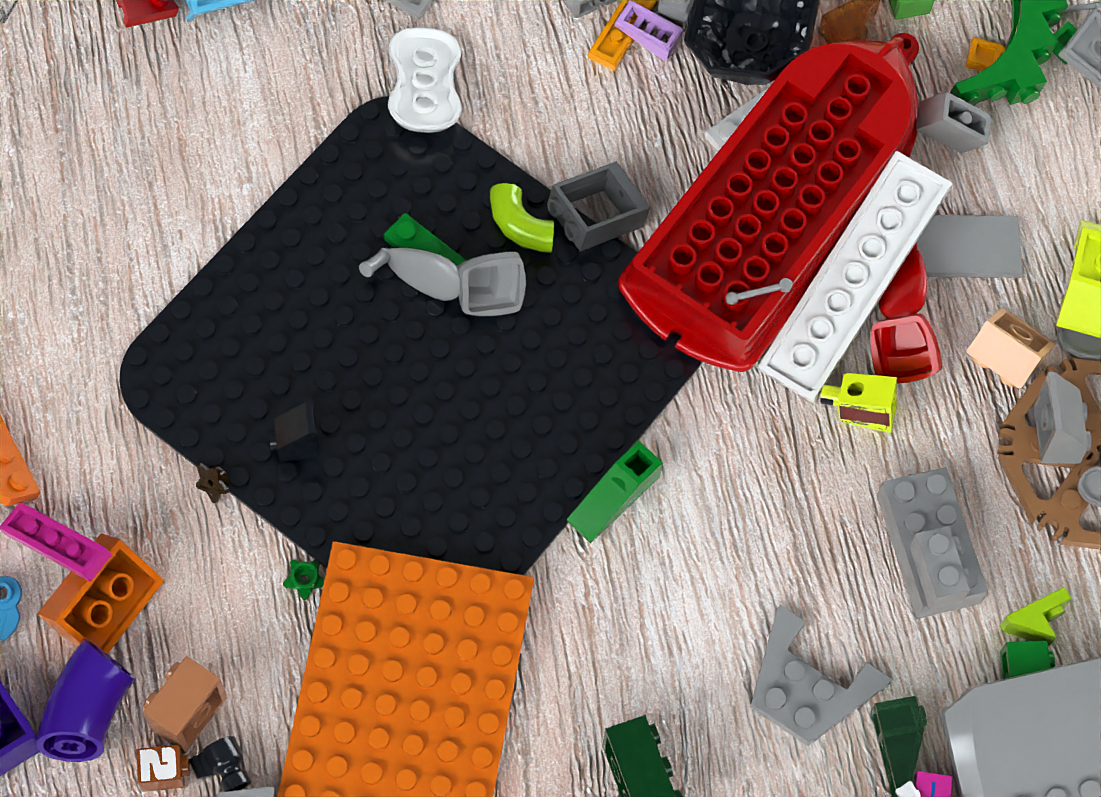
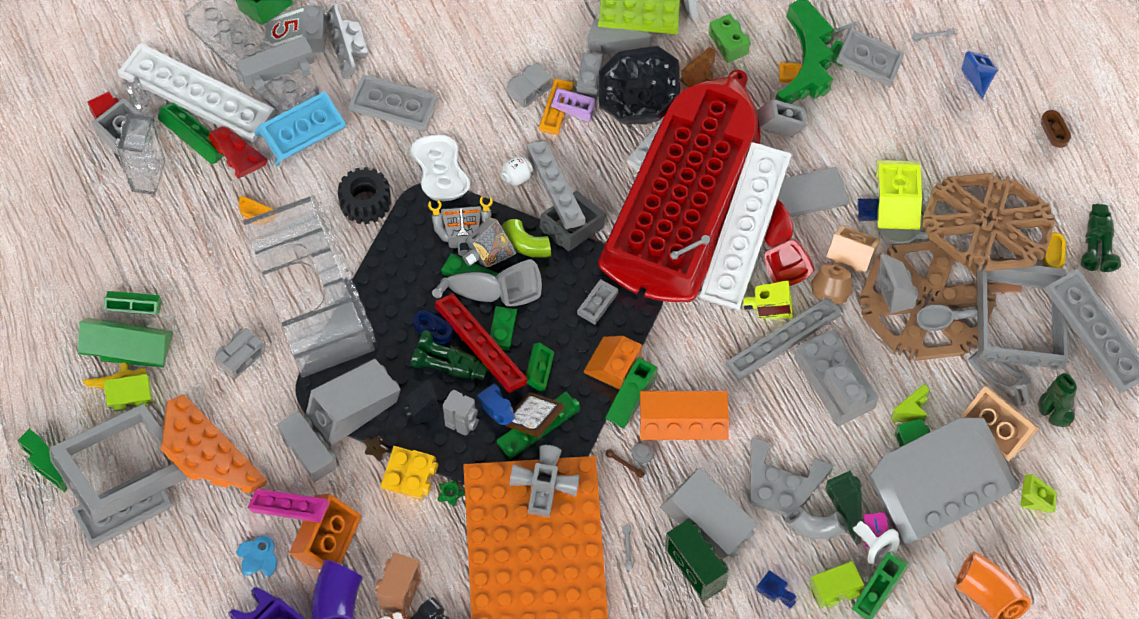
camera: 10 degrees left, 5 degrees down
(54, 289) = (239, 353): none -> light grey brick
(113, 454) = (307, 446): none -> light grey brick
(140, 82) = (251, 208): none -> light orange tile
(194, 402) = (351, 401): none -> light grey slope
(206, 283) = (339, 324): none -> clear arch
(251, 534) = (409, 473): none -> yellow plate
(298, 74) = (364, 181): none -> black tyre
(347, 320) = (435, 326): none -> clear blue plate
(347, 461) = (460, 413): none -> light grey brick
(371, 382) = (459, 362): none -> dark green piece
(405, 462) = (495, 406): none -> blue leg
(410, 361) = (481, 343): none -> red plate
(432, 175) = (459, 223): none -> light grey torso
(443, 600) = (544, 481): none -> light grey brick
(450, 345) = (503, 326): none -> green plate
(458, 491) = (535, 414): none -> tile
(461, 214) = (488, 245): none -> torso
(462, 507) = (516, 441): none -> green hinge
(487, 418) = (539, 366): none -> green plate
(537, 110) = (516, 171): none -> white head
(551, 703) = (626, 530): none -> light grey hinge
(559, 577) = (610, 454): none -> reddish brown hinge
(587, 146) = (555, 184): none -> light grey plate
(601, 434) = (613, 360): none -> orange slope
(602, 338) = (597, 301): none -> light grey plate
(608, 587) = (642, 452): none -> light grey plate
(684, 547) = (684, 415): none -> orange slope
(686, 709) = (713, 511): none -> light grey slope
(839, 770) = (814, 526): none -> light grey cylinder
(868, 462) = (783, 338): none -> light grey plate
(964, 396) = (832, 283): none -> medium nougat cone
(1048, 292) = (867, 209): none -> clear blue plate

